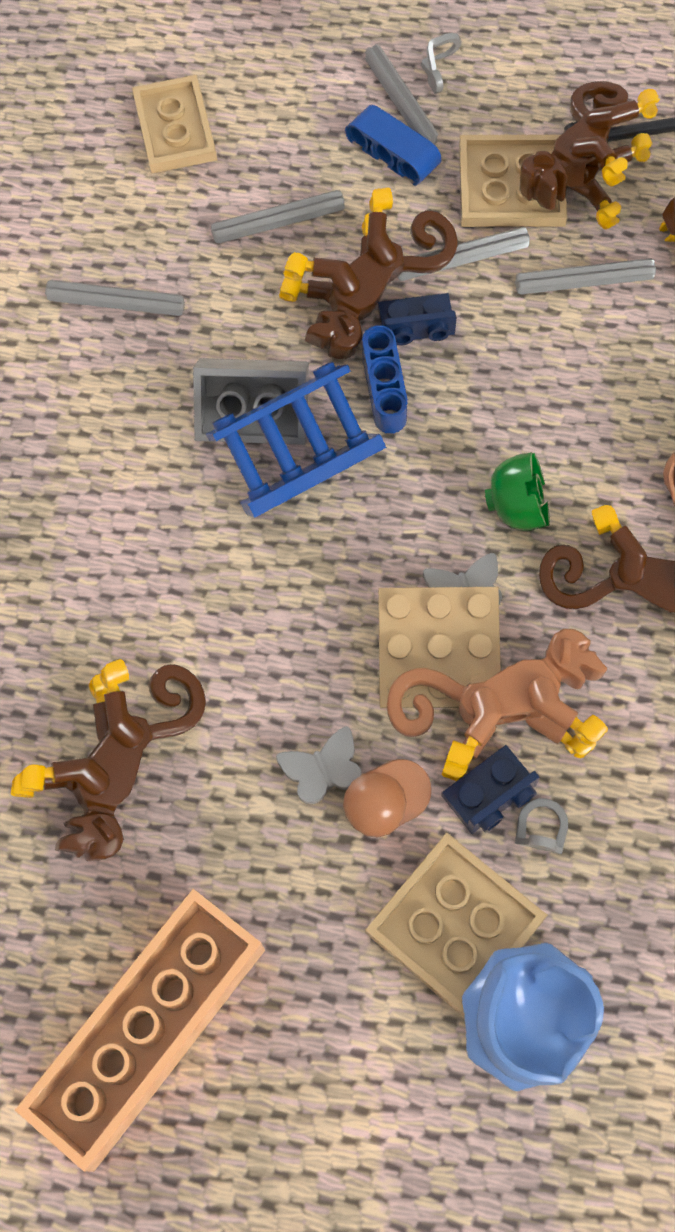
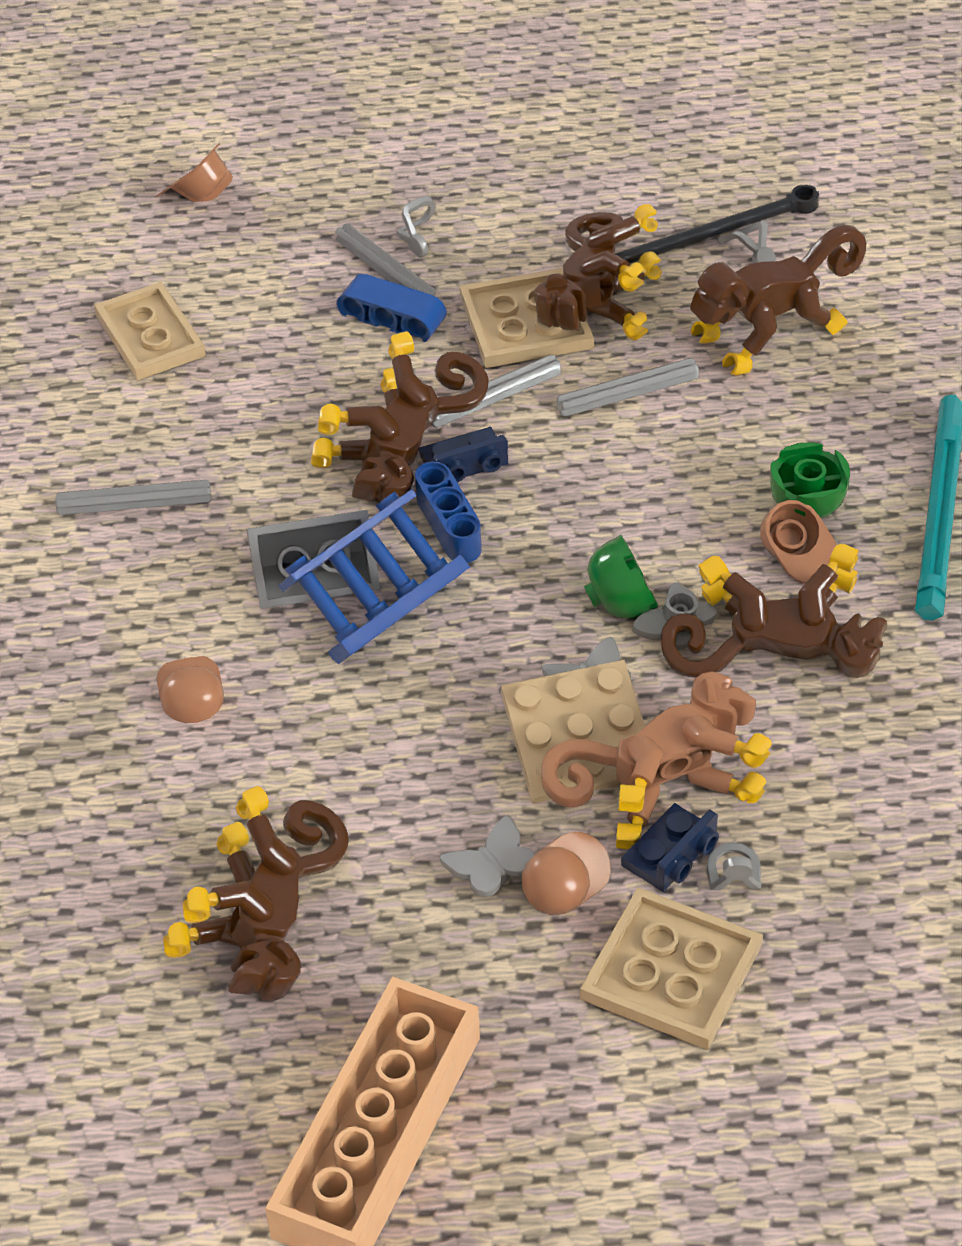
camera: 15 degrees left, 20 degrees down
(112, 511) = (190, 689): none -> nougat cap
(277, 216) = (287, 393): light grey axle -> none
(531, 1016) = (776, 1019): medium blue piece -> none
(569, 530) = (678, 601): none -> light grey animal

